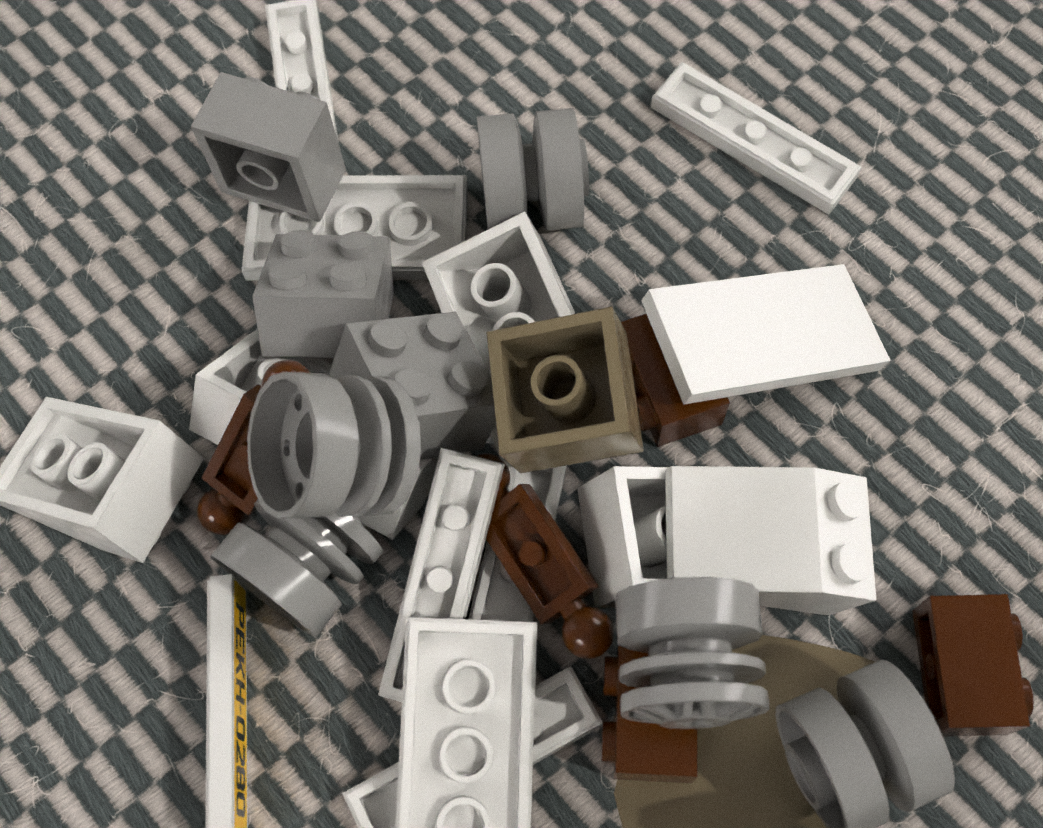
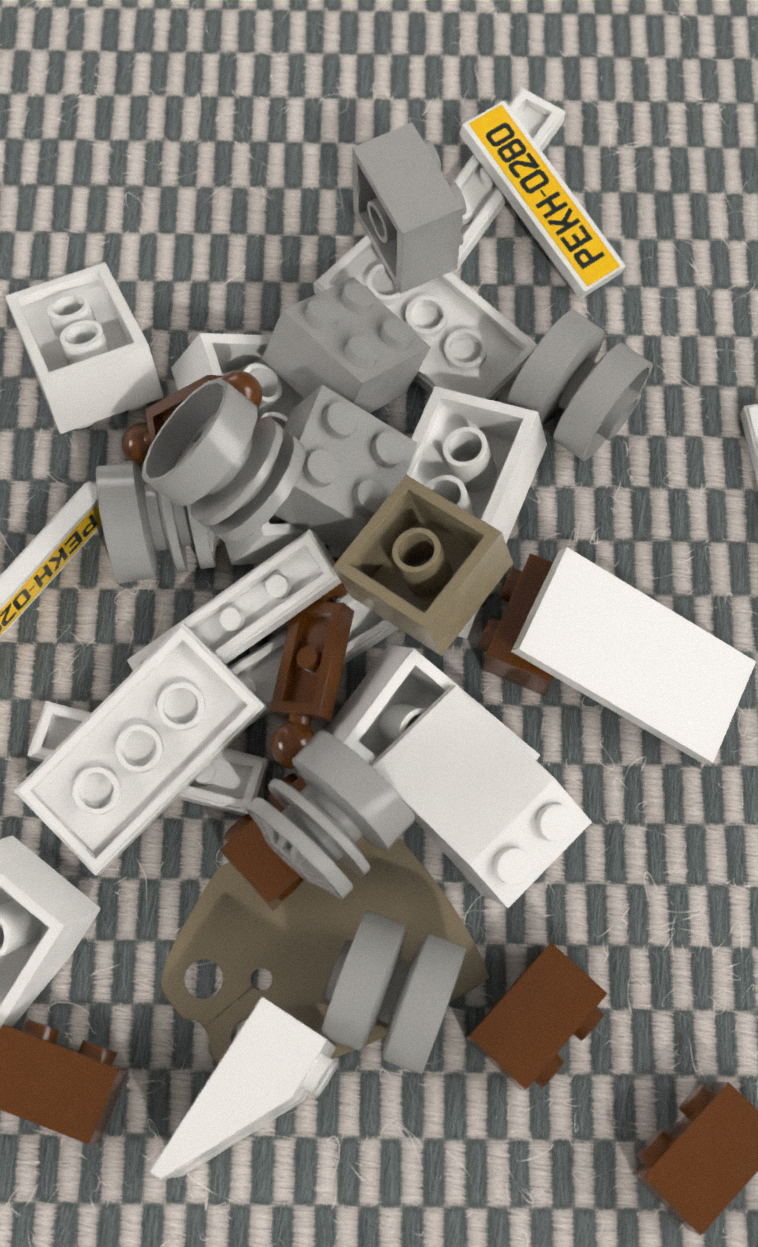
camera: 40 degrees right, 5 degrees up
(360, 68) = (542, 199): none -> tile

